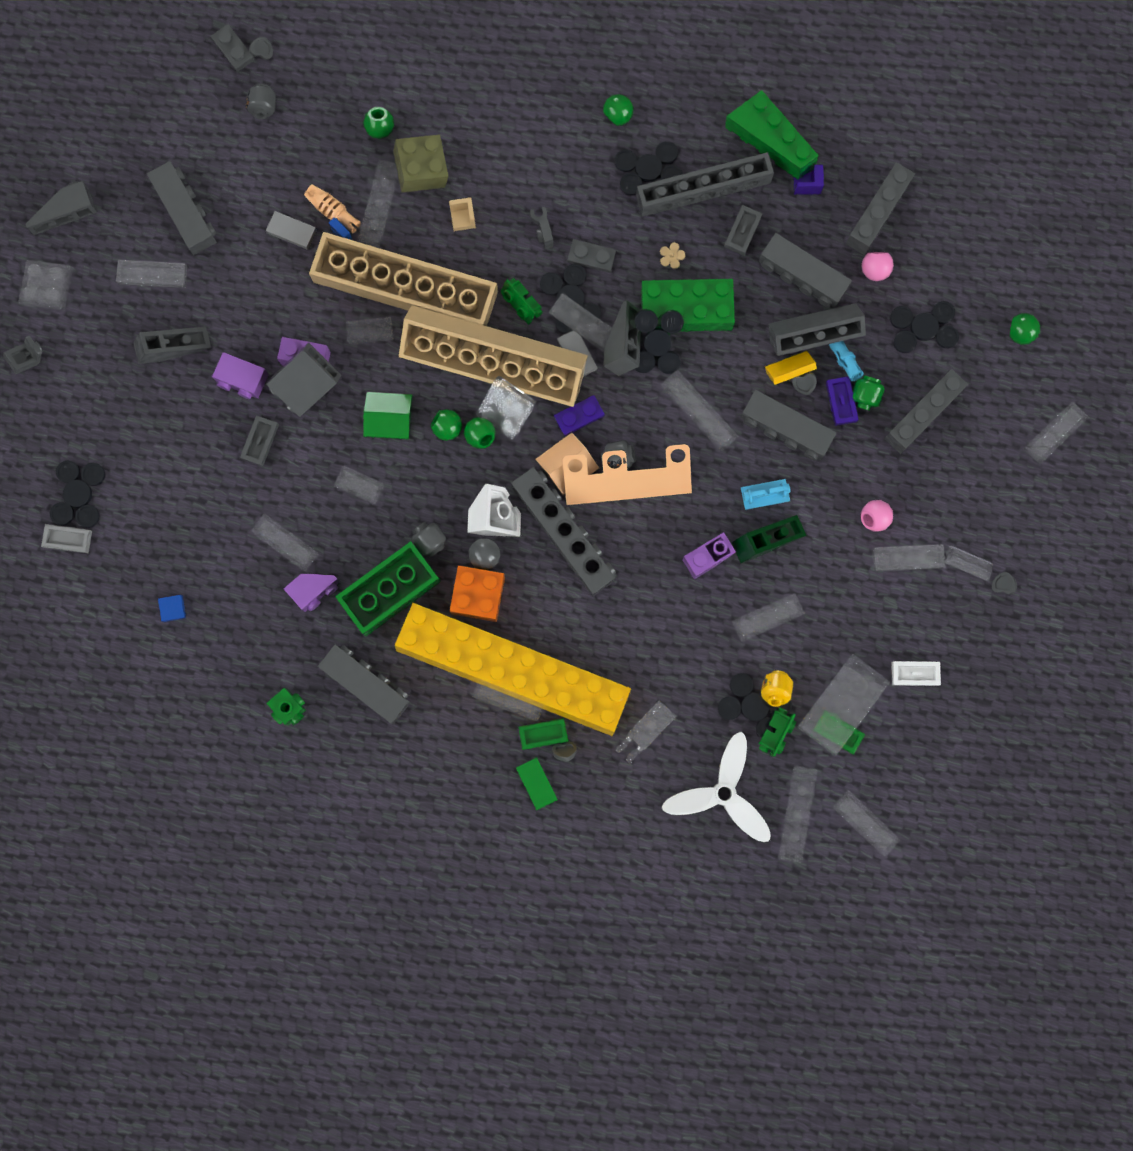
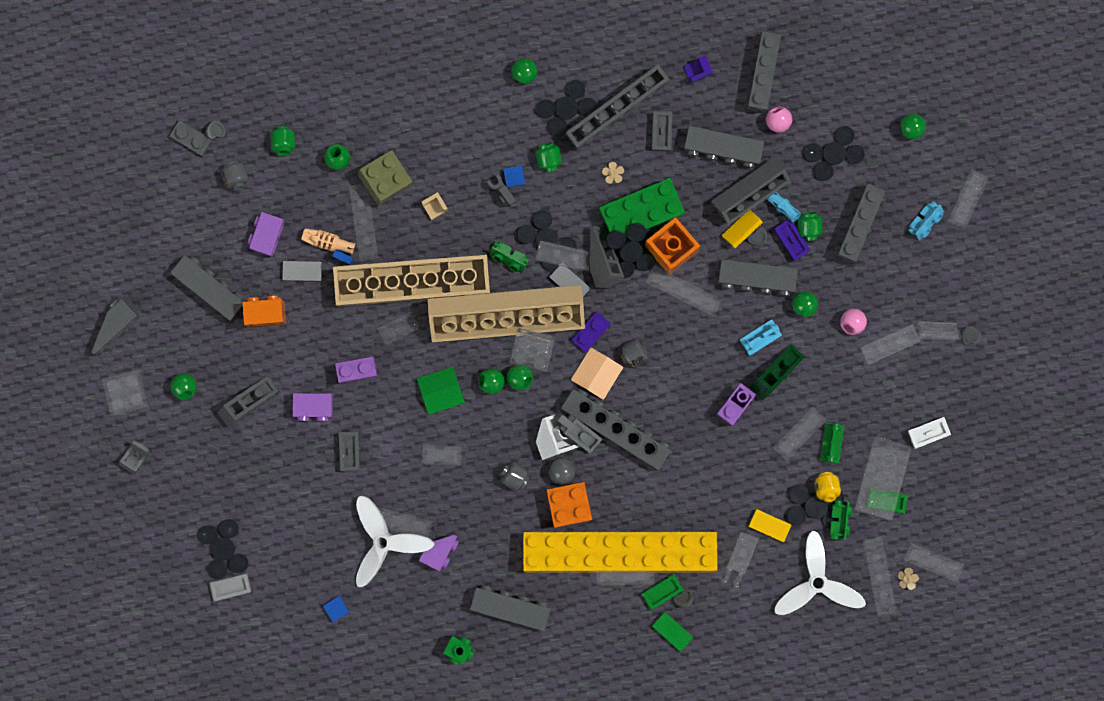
camera: 25 degrees left, 5 degrees up
(109, 300) = (183, 386): none -> green piece
(151, 273) = (206, 350): clear plate -> none
(229, 253) = (264, 312): none -> orange brick
(253, 534) = (377, 529): none -> white piece
(268, 175) = (266, 234): none -> medium lavender brick
(303, 380) = (367, 391): dark grey brick -> none
(327, 85) = (282, 141): none -> green head
(388, 589) = (499, 528): green brick -> none
(520, 517) = (578, 432): none -> dark grey hinge
(562, 218) = (514, 176): none -> blue tile
(591, 256) = (550, 198): dark grey plate -> none
(608, 209) = (548, 156): none -> green head
(624, 484) = (649, 373): light nougat piece -> none
(694, 707) = (769, 525): none -> yellow tile
(706, 354) = (672, 246): none -> orange brick
(769, 131) = (655, 44): green wedge -> none
(801, 641) = (832, 442): none -> green hinge
(829, 830) = (908, 579): none -> tan plant
(830, 475) = (805, 303): none -> green piece
(1009, 433) = (932, 214): none -> medium azure hinge

